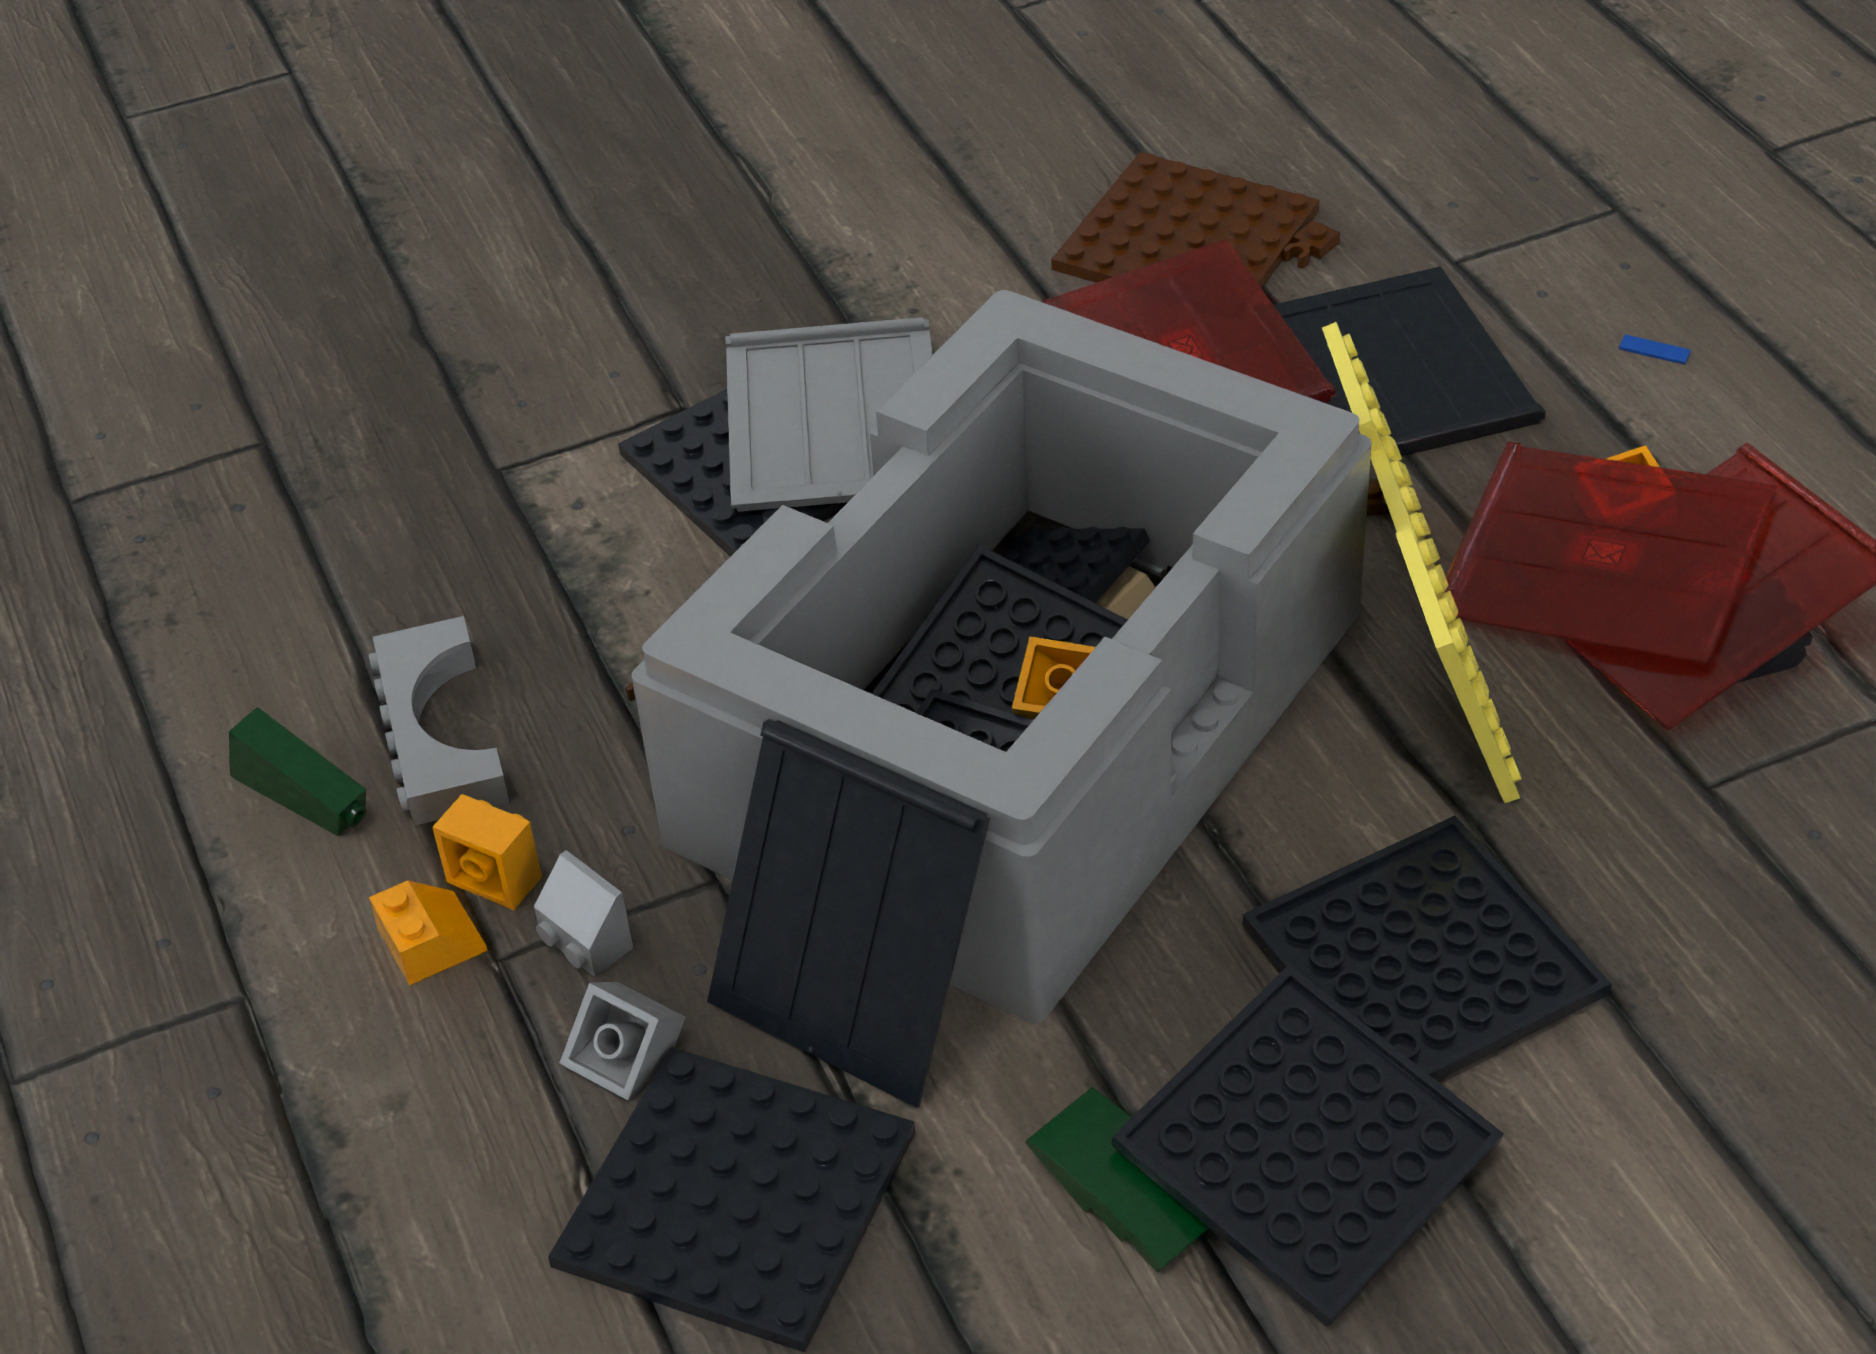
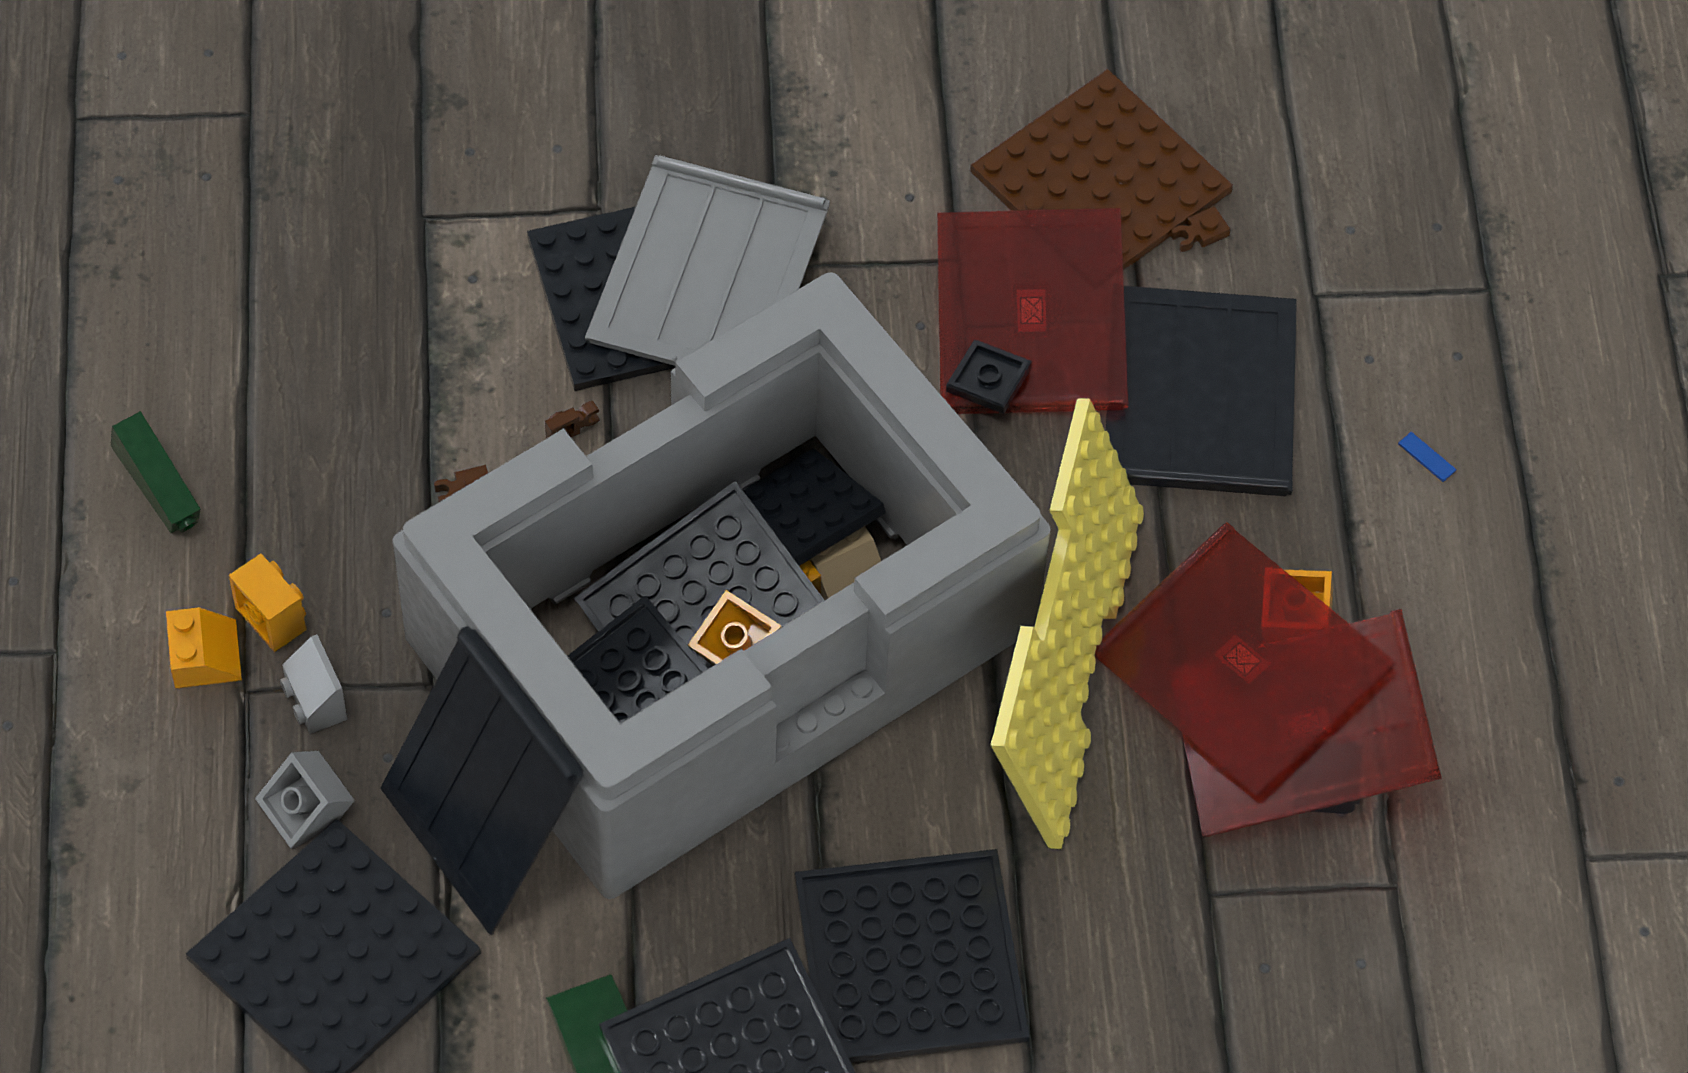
camera: 15 degrees right, 15 degrees up
(411, 670) = (277, 400): light grey arch -> none

